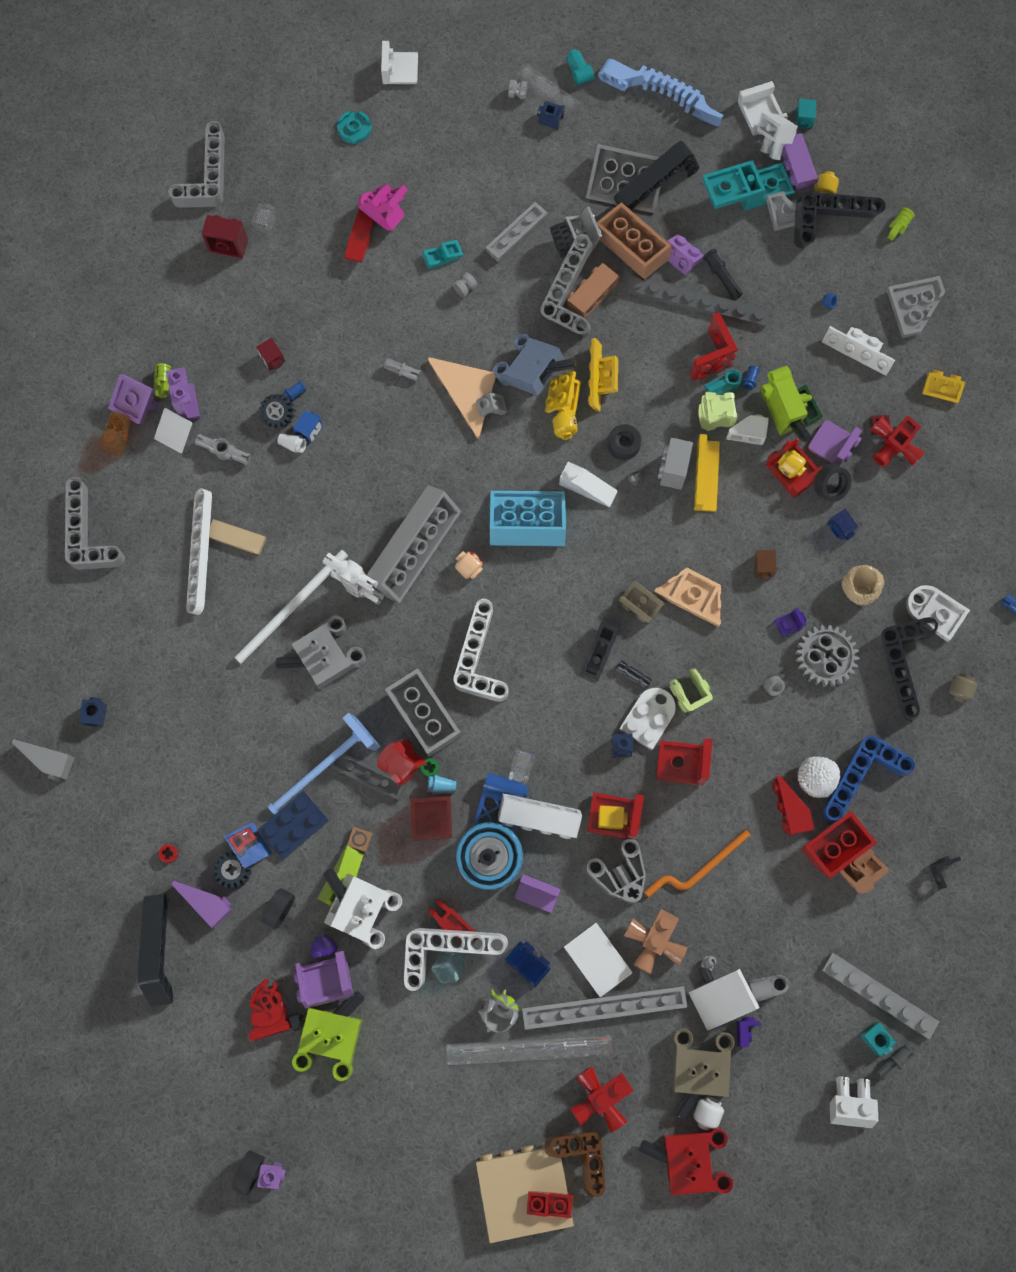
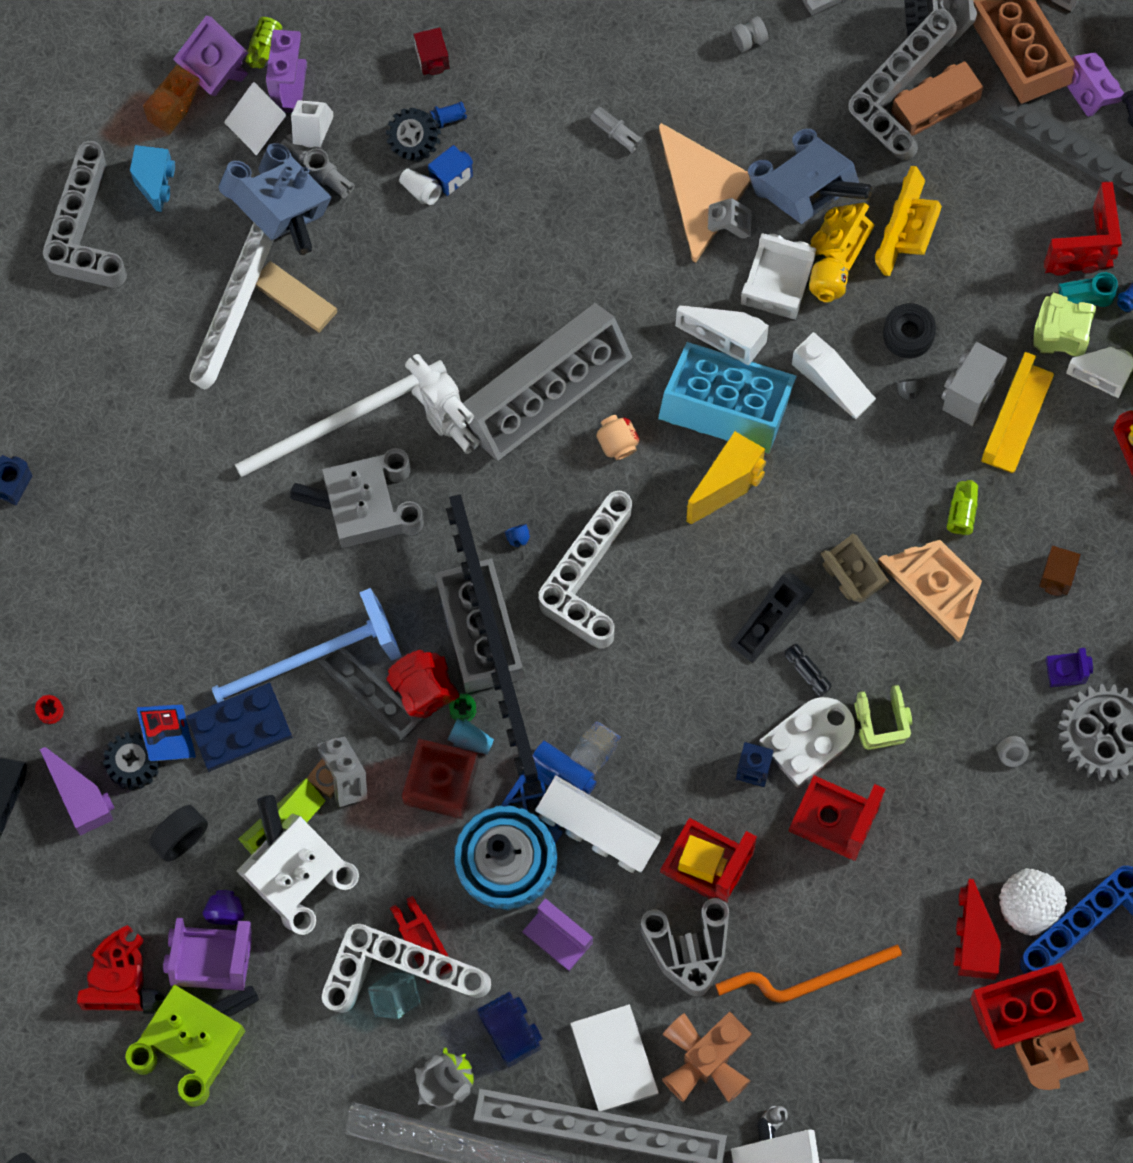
camera: 20 degrees right, 5 degrees down
(118, 485) = (151, 172): none -> dark azure slope
(205, 478) = (278, 198): none -> sand blue piece
(209, 423) = (310, 123): none -> white slope
(370, 831) = (346, 770): none -> light grey bracket
(427, 646) = (518, 535): none -> blue hinge
(439, 727) = (493, 650): none -> black plate
(513, 476) = (728, 331): none -> white slope
(533, 431) = (778, 276): none -> white panel
(548, 565) = (728, 478): none -> yellow slope
(694, 543) = (963, 508): none -> lime hinge

